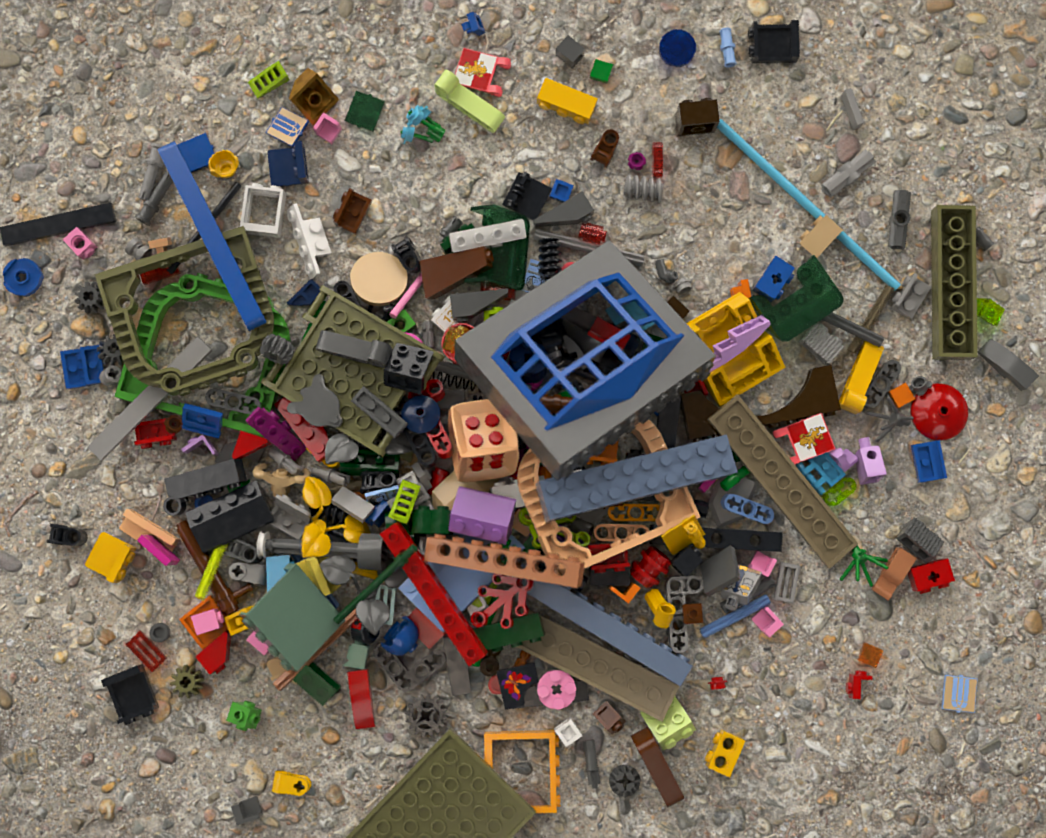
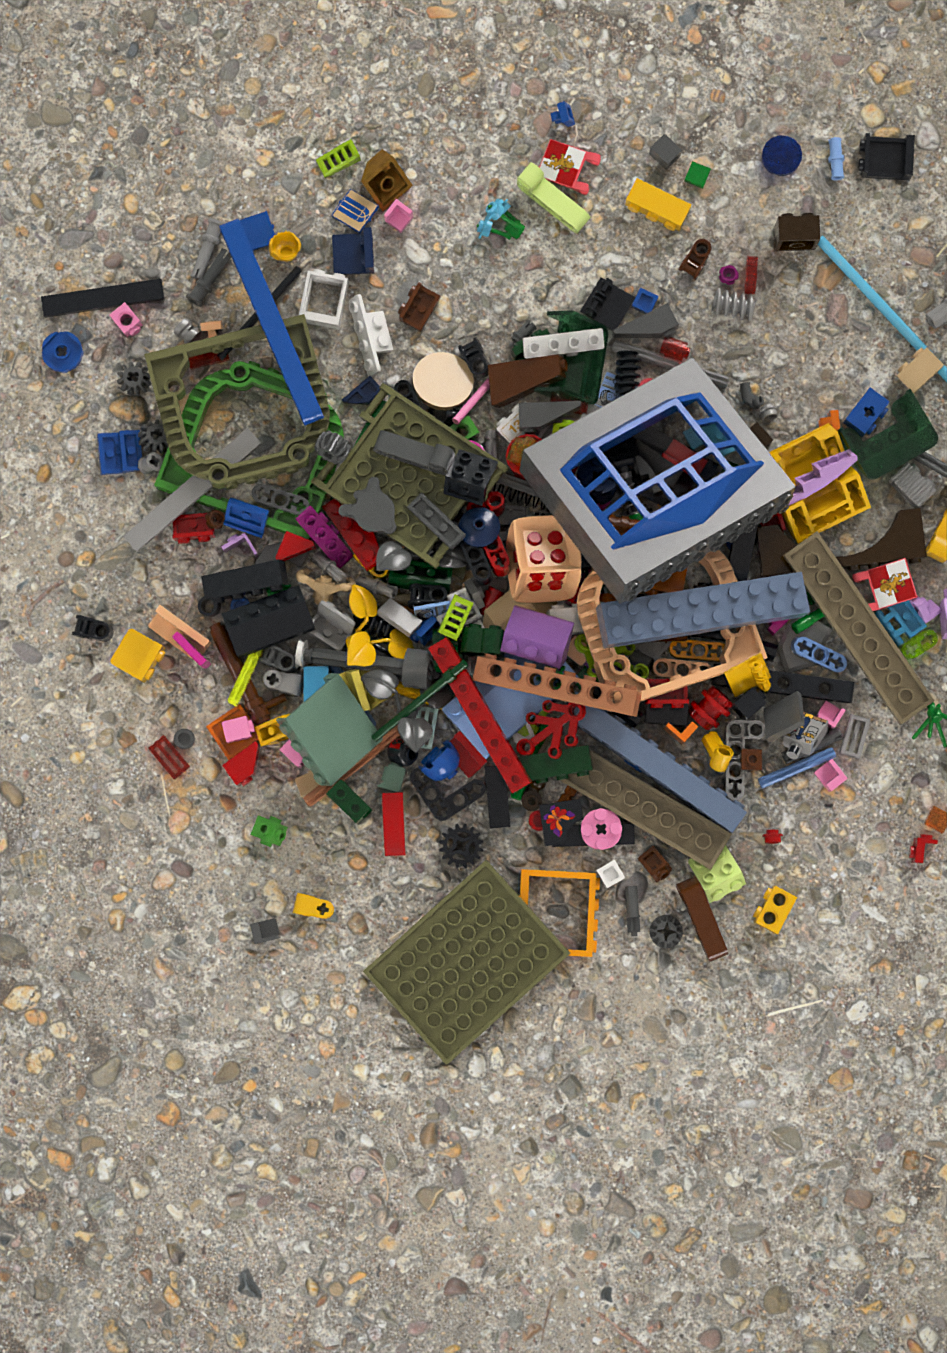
camera: 10 degrees right, 0 degrees up
(131, 694) = (150, 800): black panel -> none
(181, 676) = (215, 796): olive gear -> none
(364, 111) = (439, 199): clear green piece -> none

